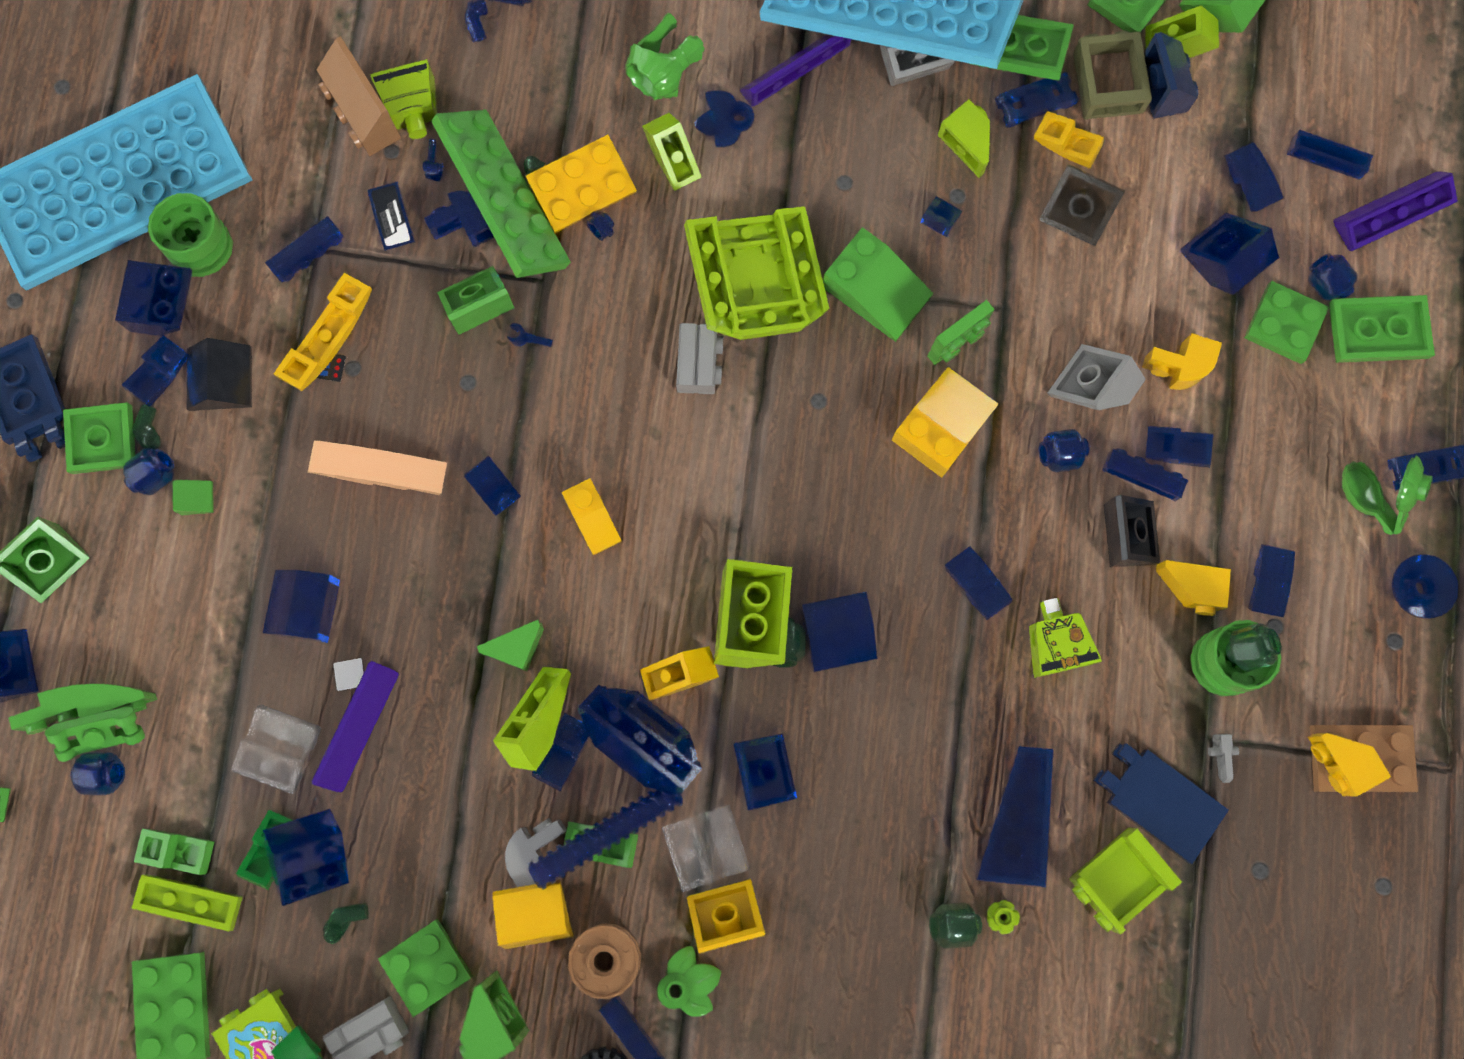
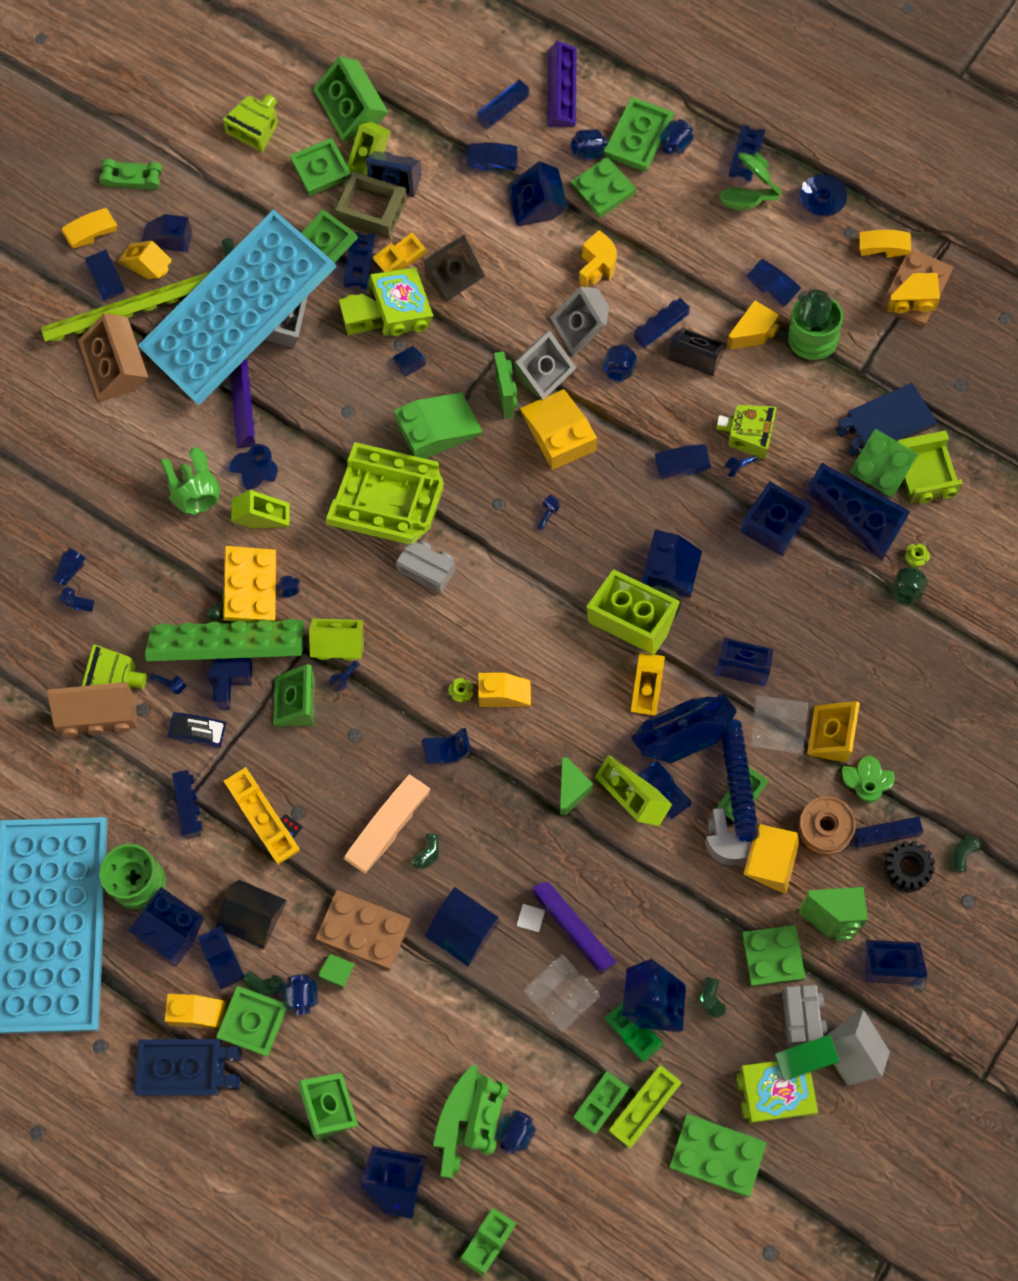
camera: 60 degrees left, 10 degrees down
(82, 372) = (194, 1011): none -> yellow slope
(252, 502) = (363, 929): none -> medium nougat plate
(365, 529) = (429, 854): none -> clear green arm
(560, 305) = (336, 639): none -> lime brick
(577, 476) = (461, 696): none -> lime plate
(844, 461) = (552, 507): none -> clear blue hand
(957, 727) = (776, 518): none -> clear blue brick
(1005, 167) = (401, 301): none -> lime panel
(1007, 648) = (735, 464): none -> clear blue hand
(1012, 366) = (543, 366): none -> light grey slope
(1099, 824) = (884, 463): none -> bright green plate
(1179, 447) = (654, 292): clear blue slope -> none
(1223, 750) = (872, 366): light grey piece -> none
(1402, 374) = (676, 137): none -> clear blue head
(1407, 697) = (890, 241): none -> yellow slope

